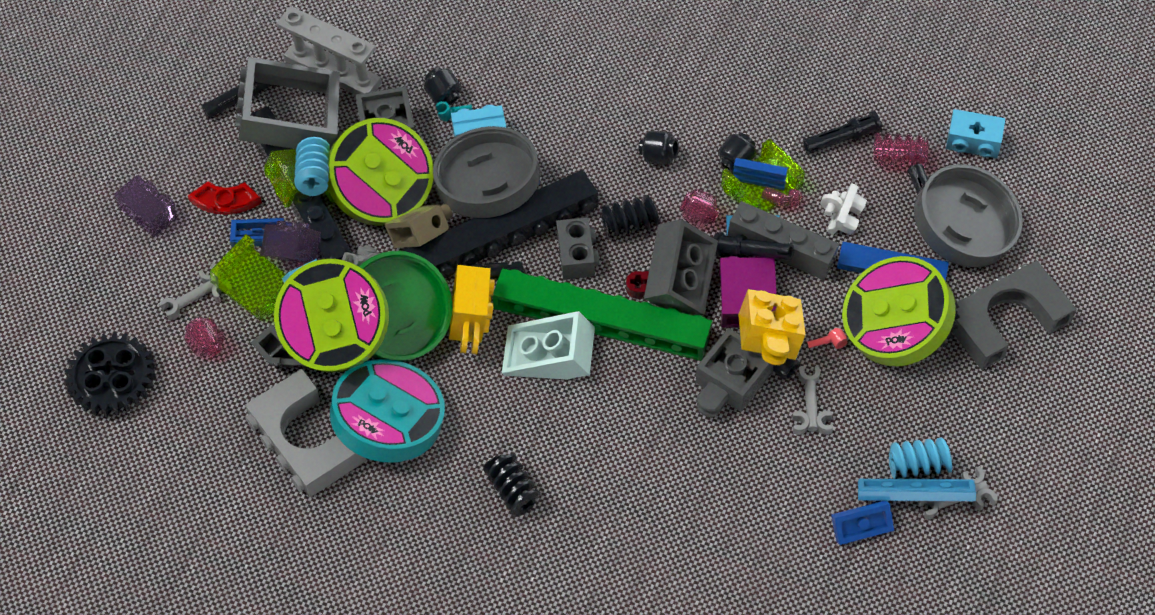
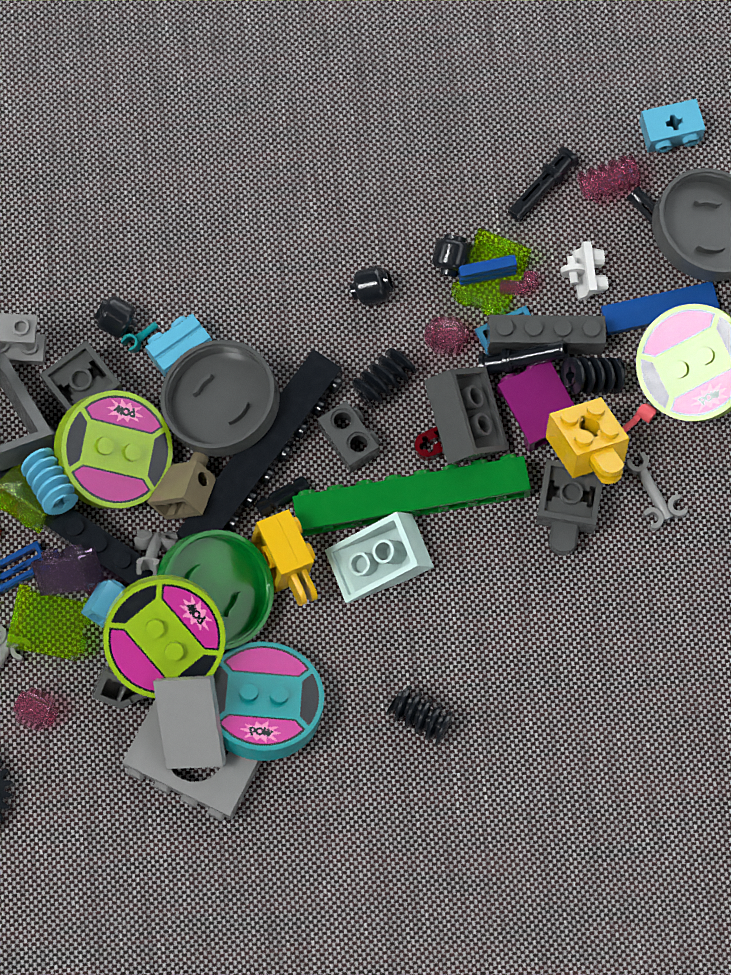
camera: 25 degrees left, 15 degrees up
(313, 391) = (189, 722): none -> light grey tile
(806, 283) = (593, 375): none -> black piece

